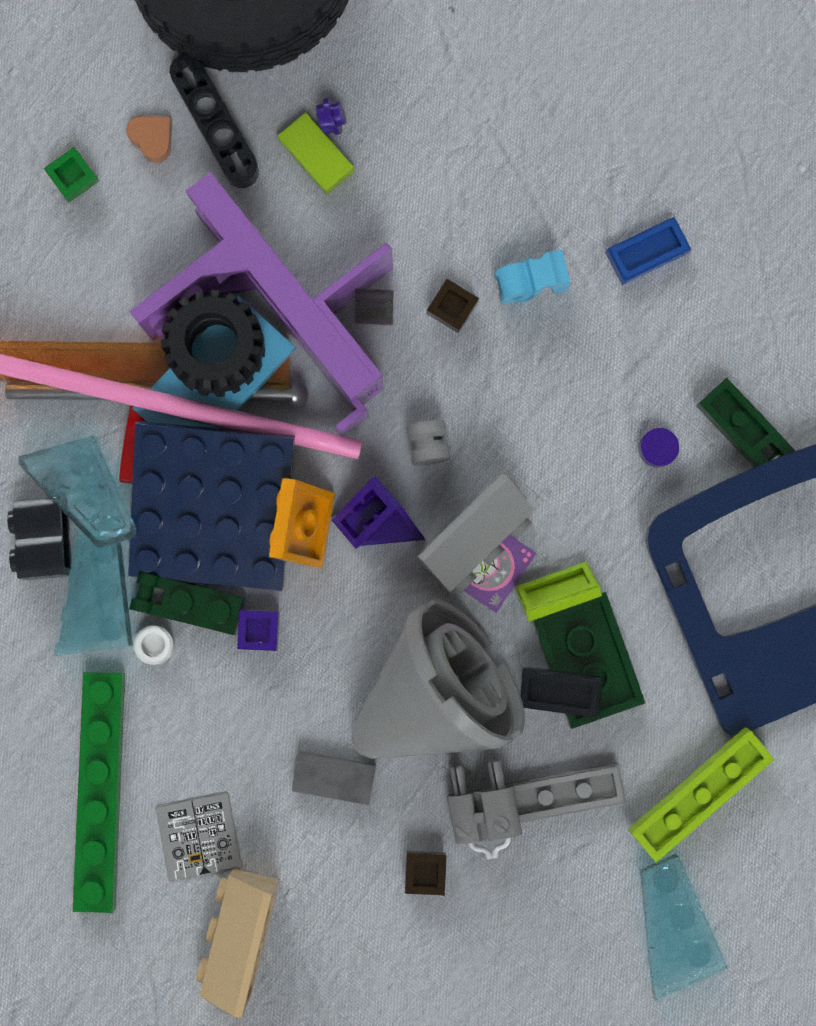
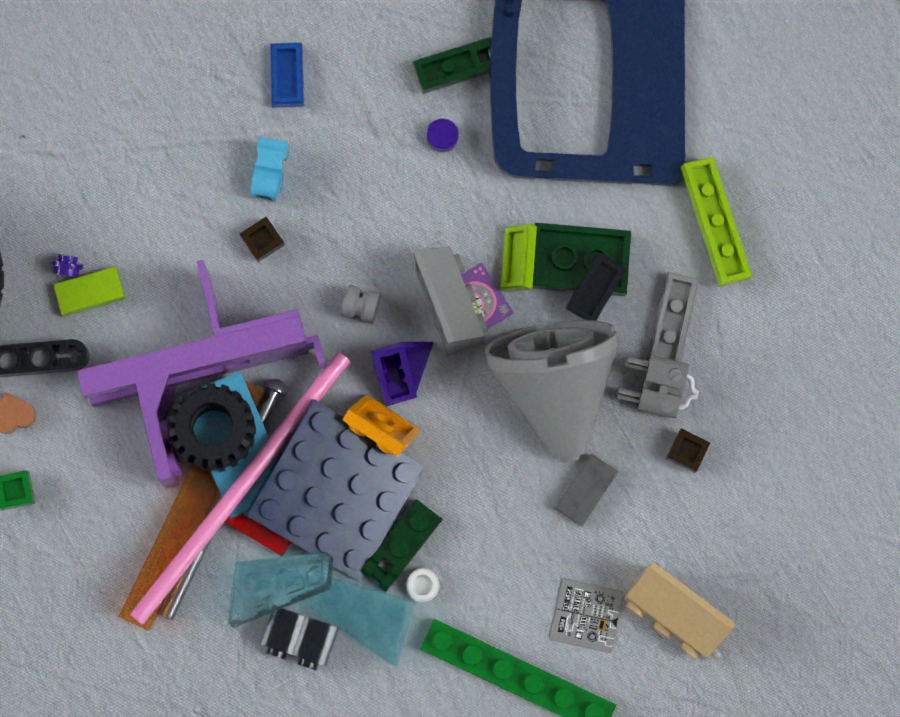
camera: 70 degrees left, 5 degrees down
(258, 630) = (447, 497): dark purple plate -> none
(374, 306) = (235, 298): clear smoke tile -> none
(677, 930) = (807, 283): clear light blue wing -> none

